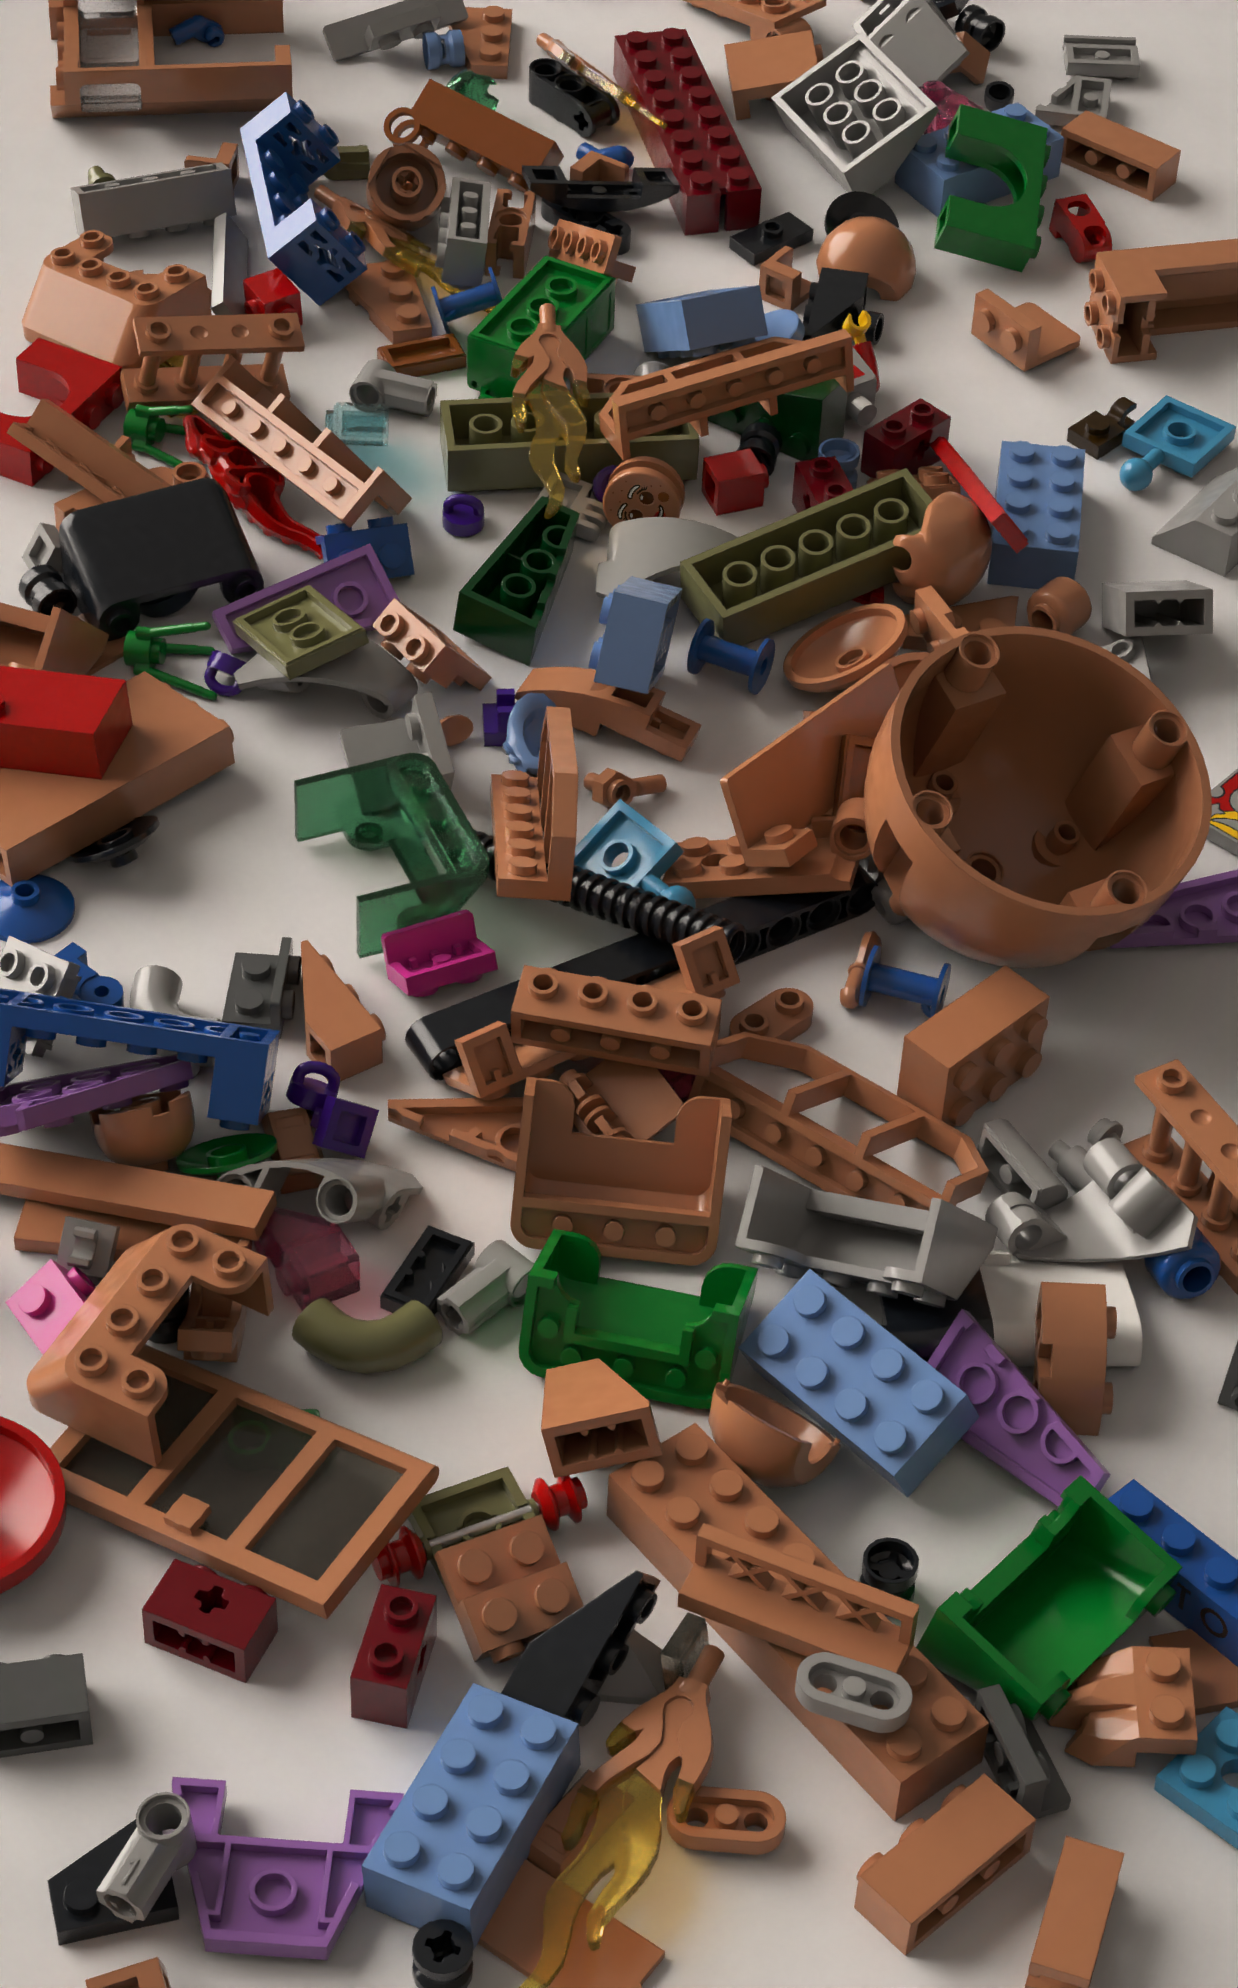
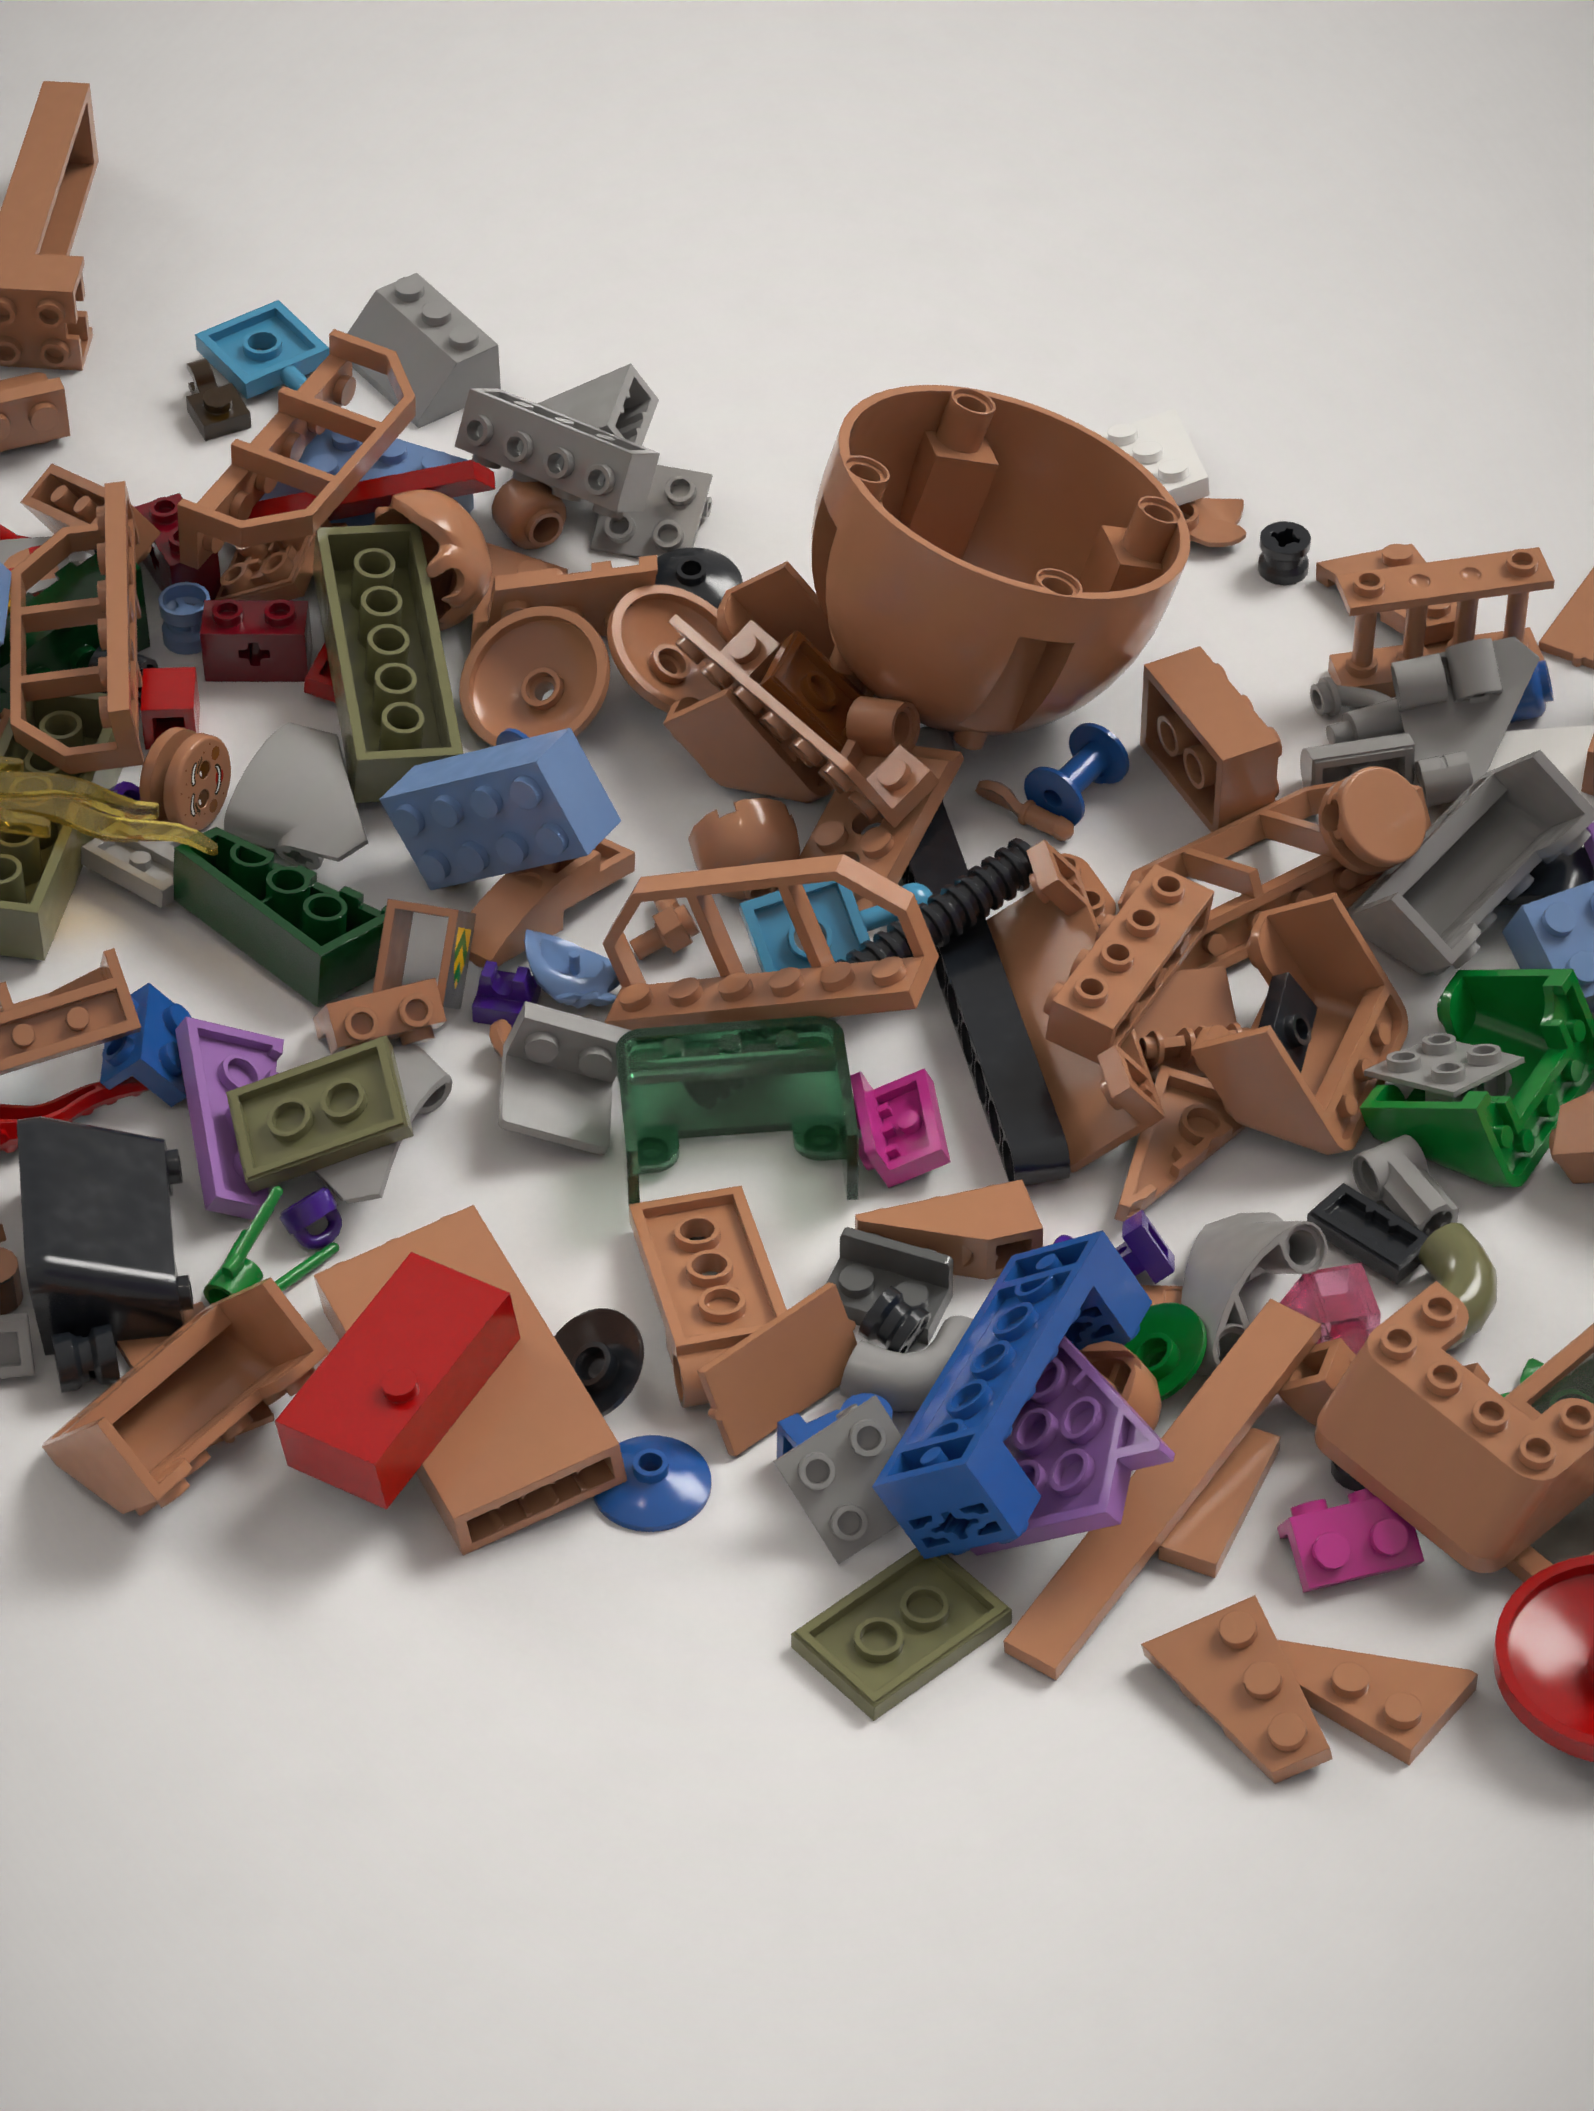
camera: 70 degrees left, 0 degrees up
(88, 1246) = (1259, 1497): light grey tile -> none
(133, 932) = (779, 1369): none -> nougat piece
(187, 891) = (700, 1311): none -> nougat hinge
(206, 990) = (894, 1322): none -> black wheel
(463, 515) = (105, 938): dark purple tile -> none
(501, 649) = (455, 951): none -> nougat piece
(620, 1161) = (1290, 1016): none -> black plate
(628, 1280) = (1448, 1068): none -> light grey hinge
(697, 801) = (751, 835): none -> nougat cylinder
(885, 1154) = (1372, 820): none -> nougat head
(896, 381) = (70, 500): none -> nougat brick
(1078, 446) = (276, 450): none -> nougat plate
(1095, 575) = (556, 451): none -> light grey brick

